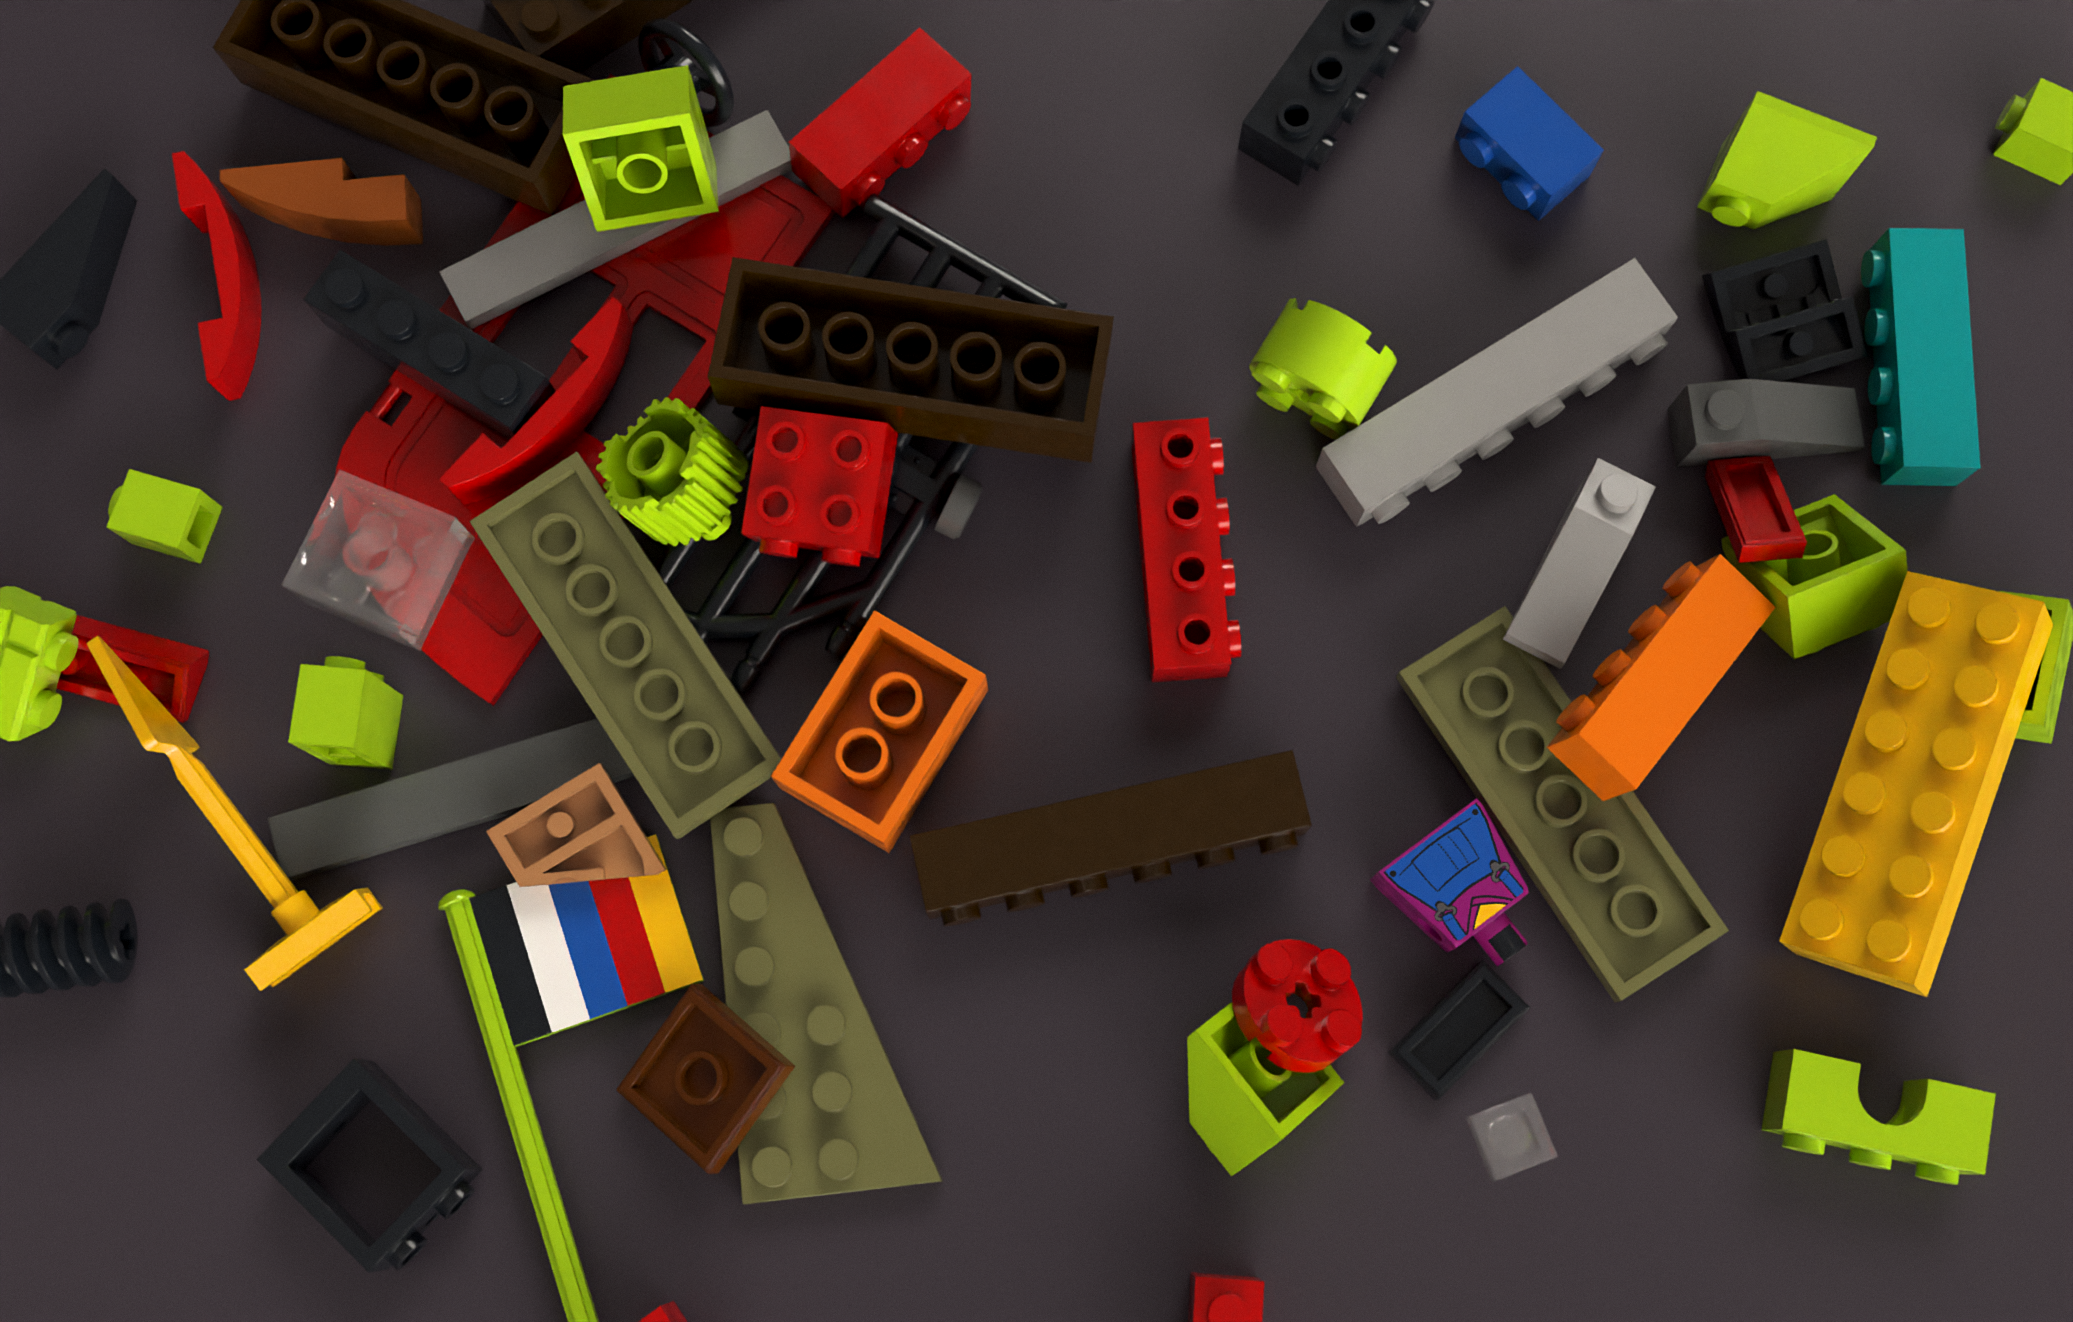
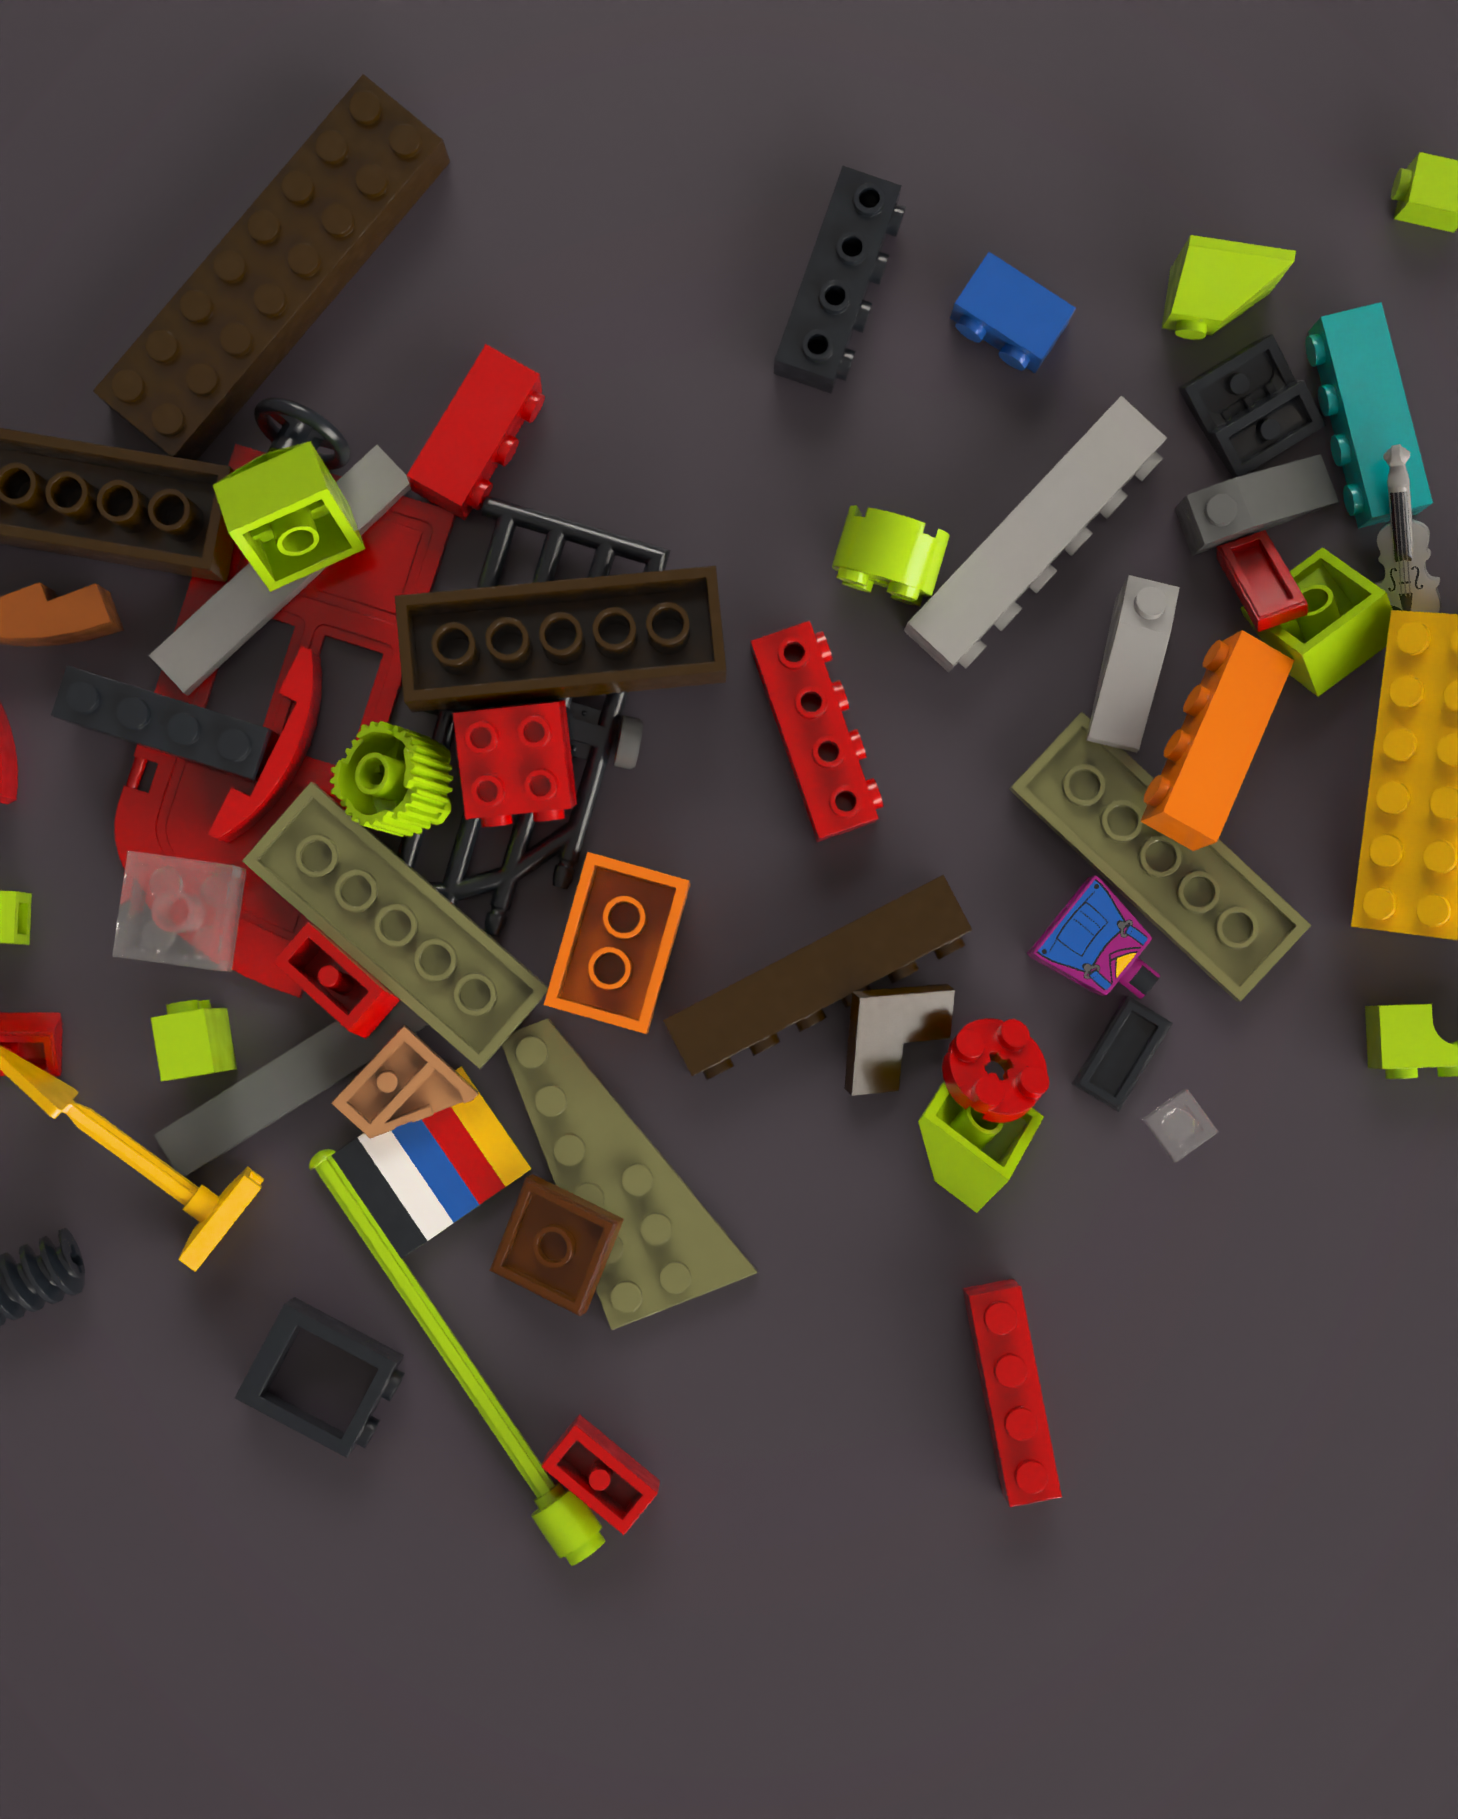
camera: 15 degrees left, 10 degrees up
(535, 687) = (336, 981): none -> red brick
(1174, 912) = (886, 1020): none -> tile
(1937, 503) = (1405, 545): none -> light grey piece

